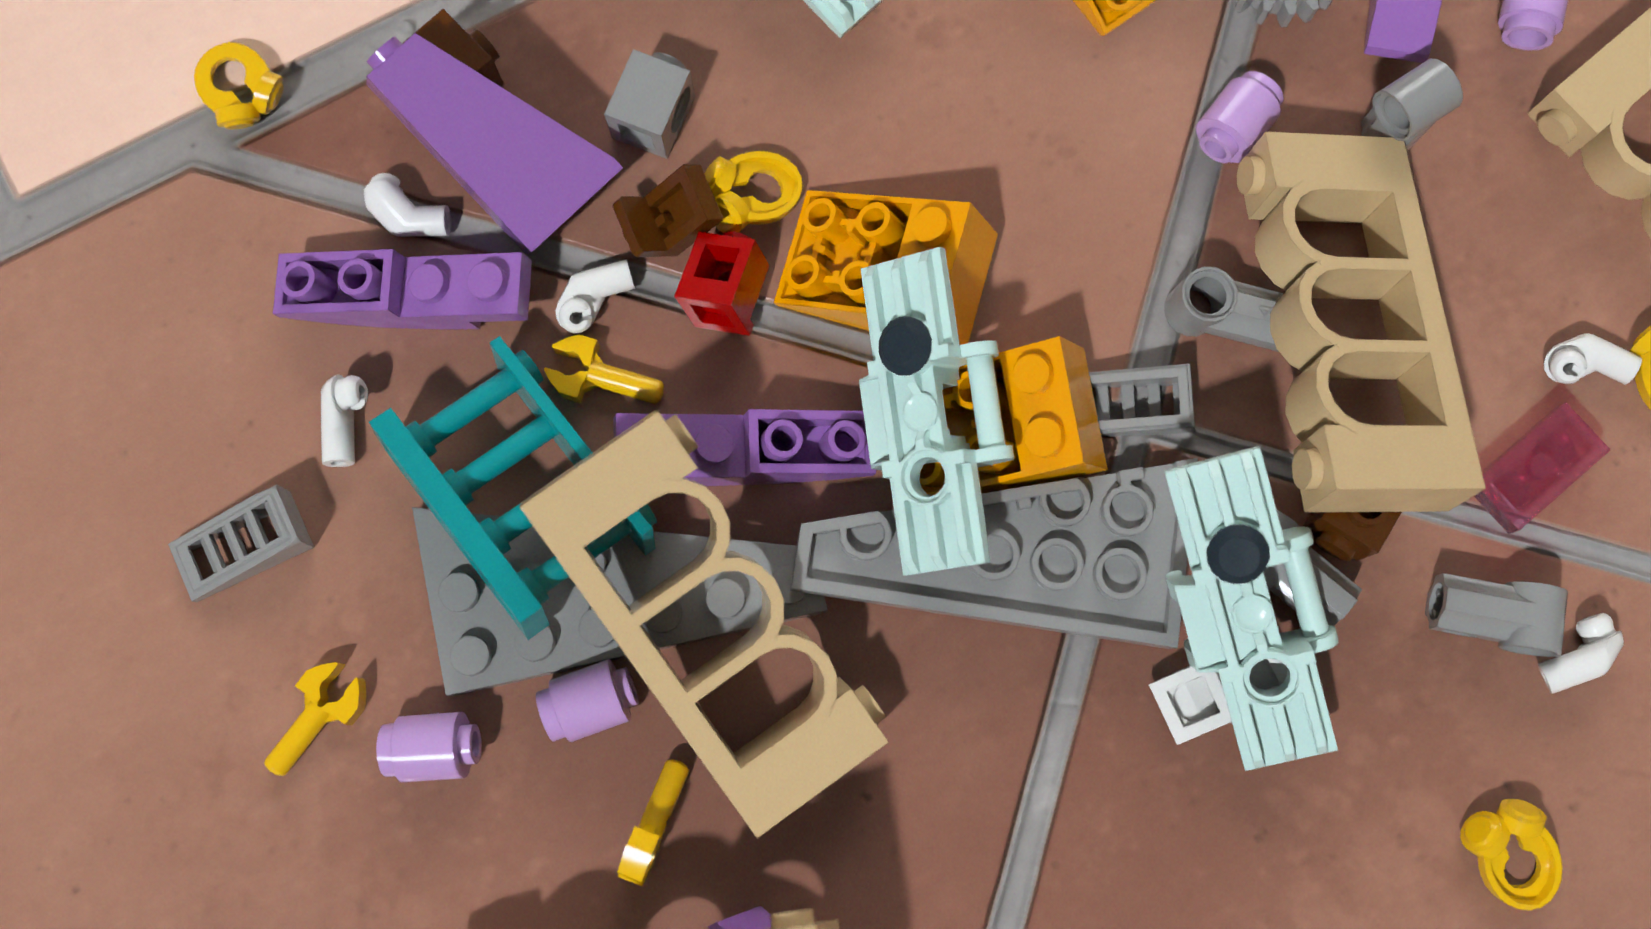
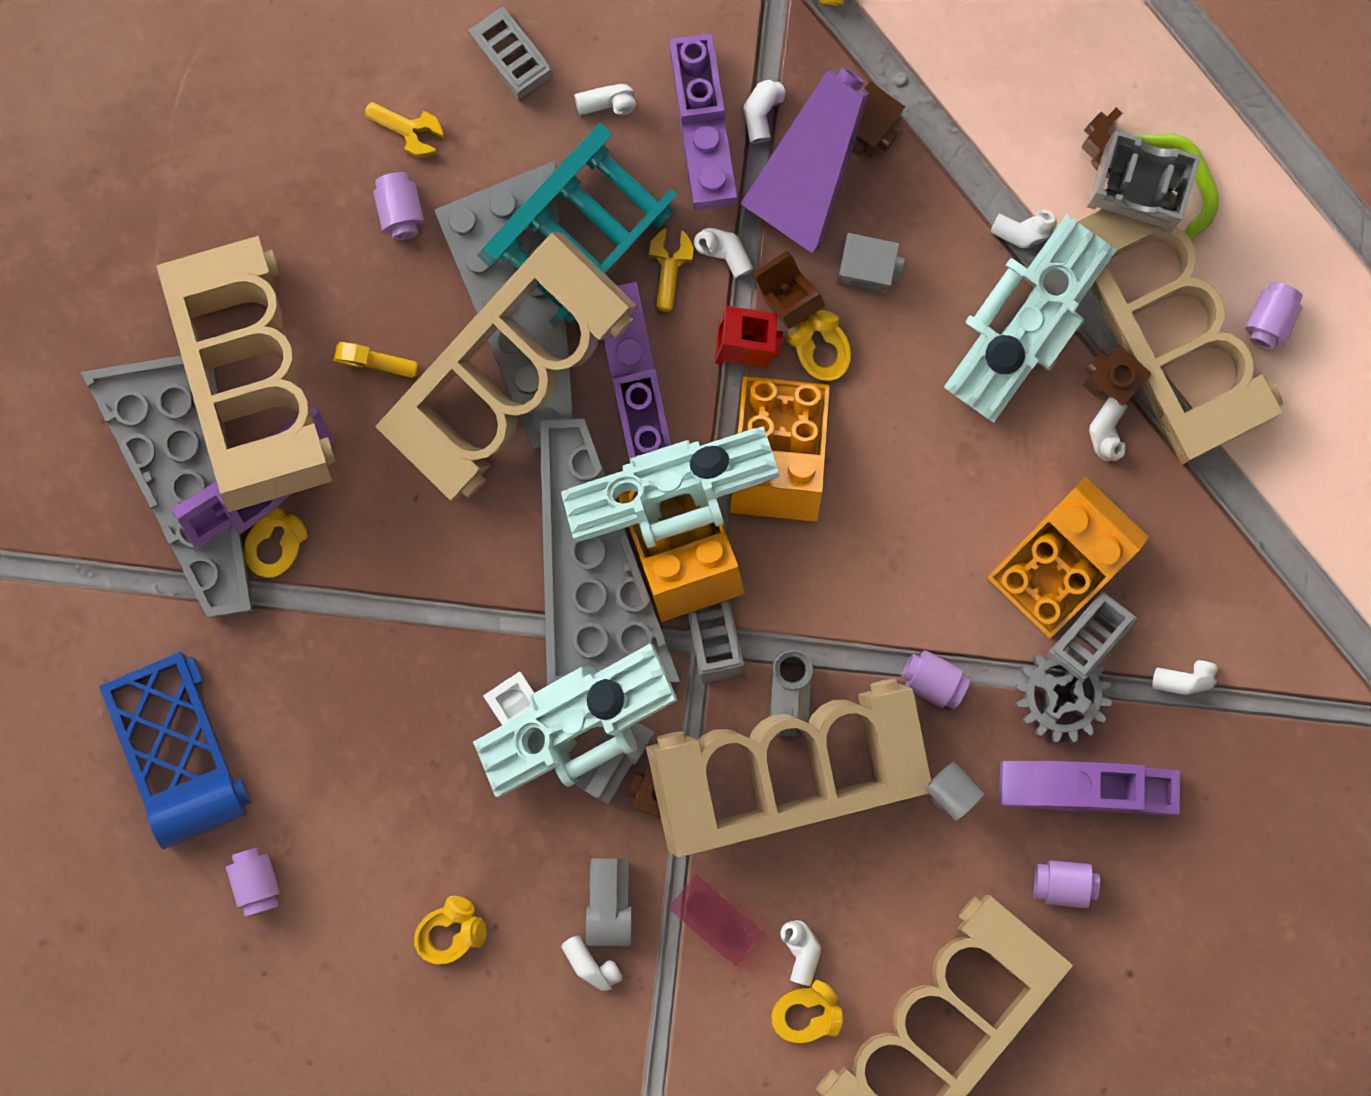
camera: 75 degrees right, 5 degrees up
(586, 701) = (445, 302): lavender brick -> none

